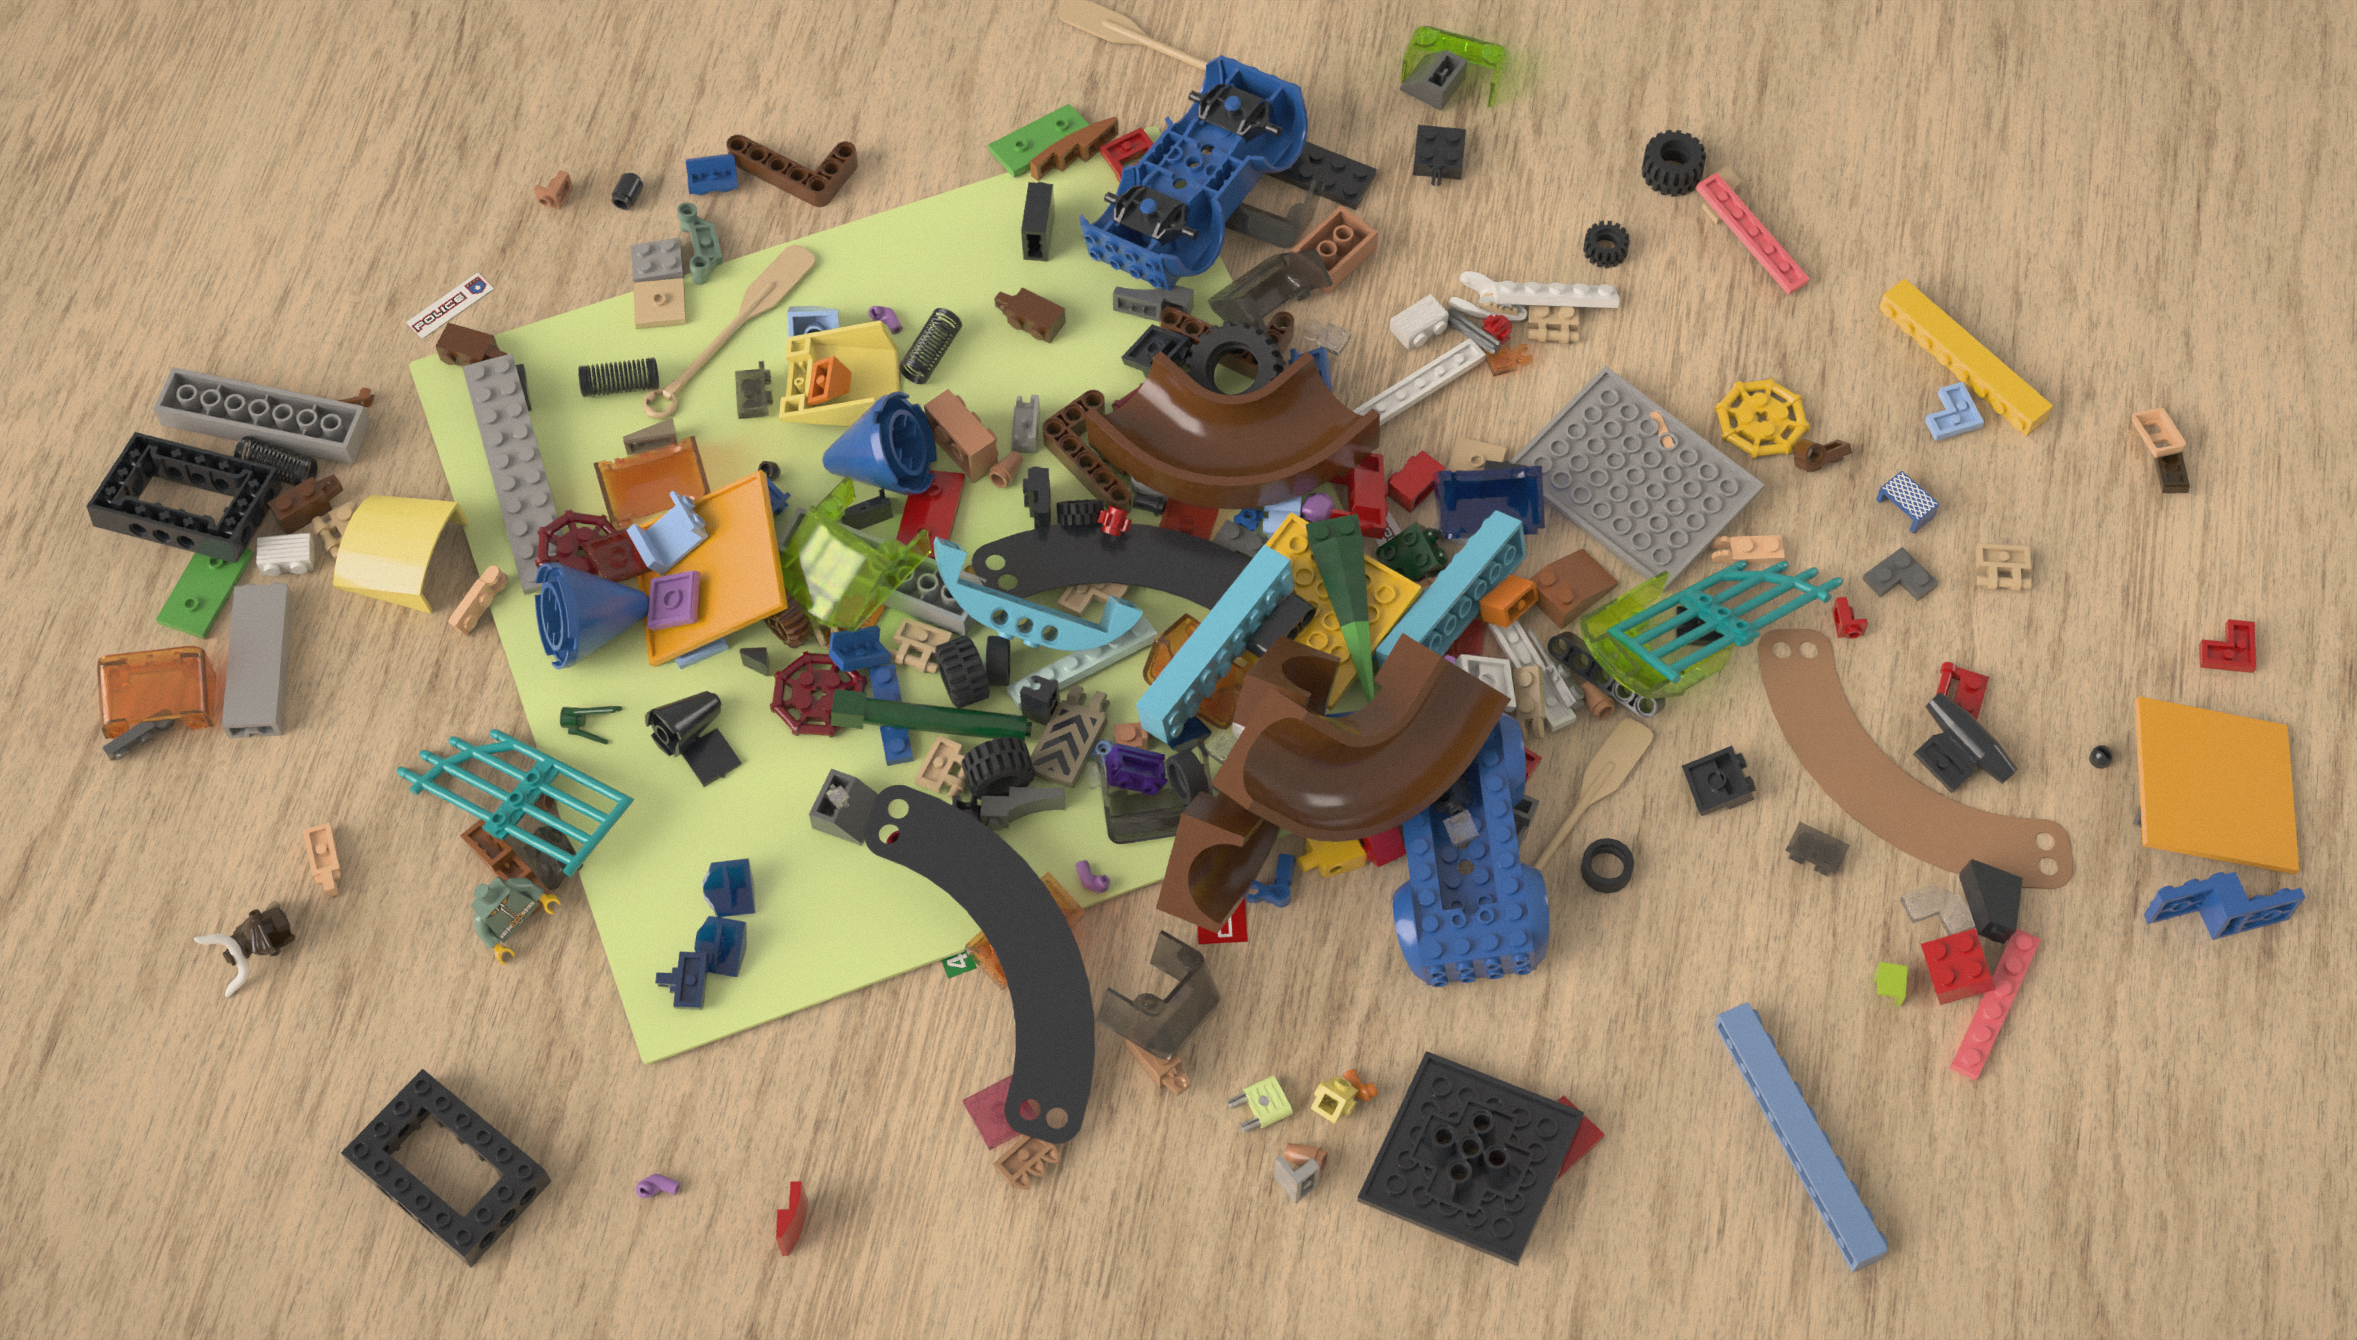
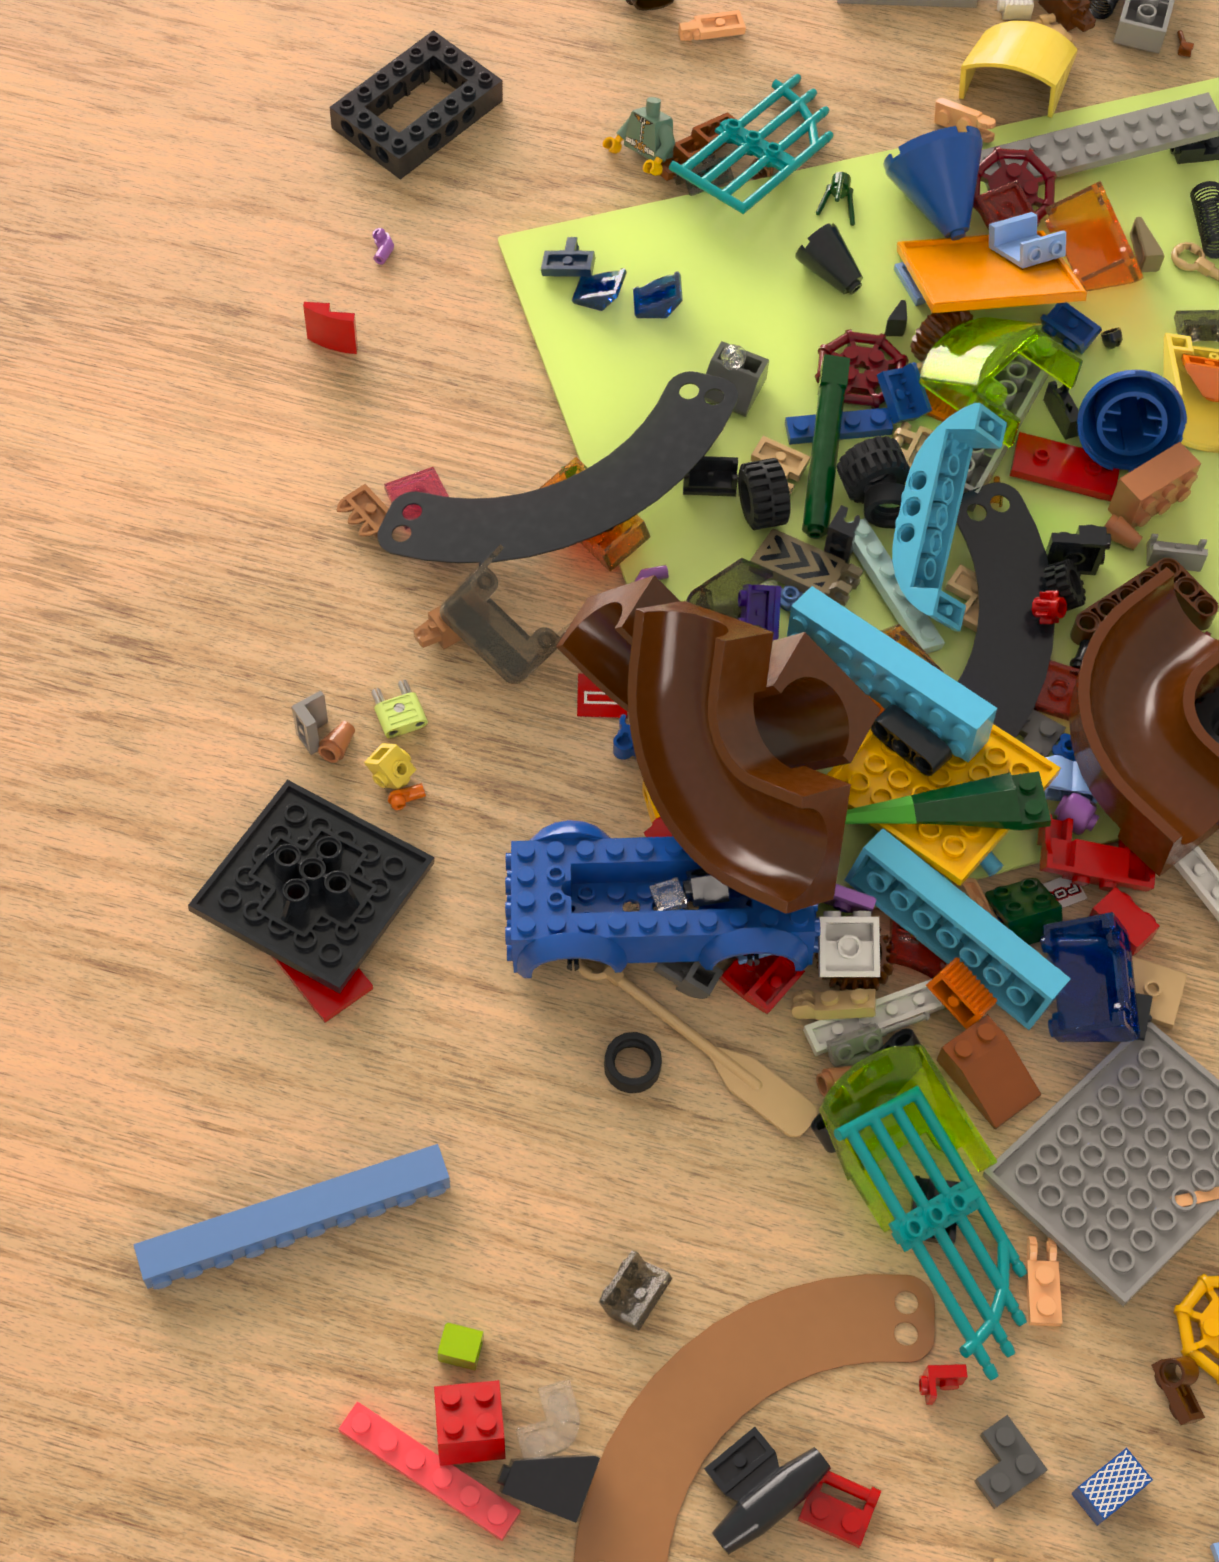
camera: 90 degrees right, 0 degrees up
(673, 600) = (955, 247): medium lavender plate -> none
(711, 757) = (798, 288): black piece -> none
(1022, 801) = (730, 516): dark grey slope -> none
(1719, 781) = (729, 1196): black plate -> none

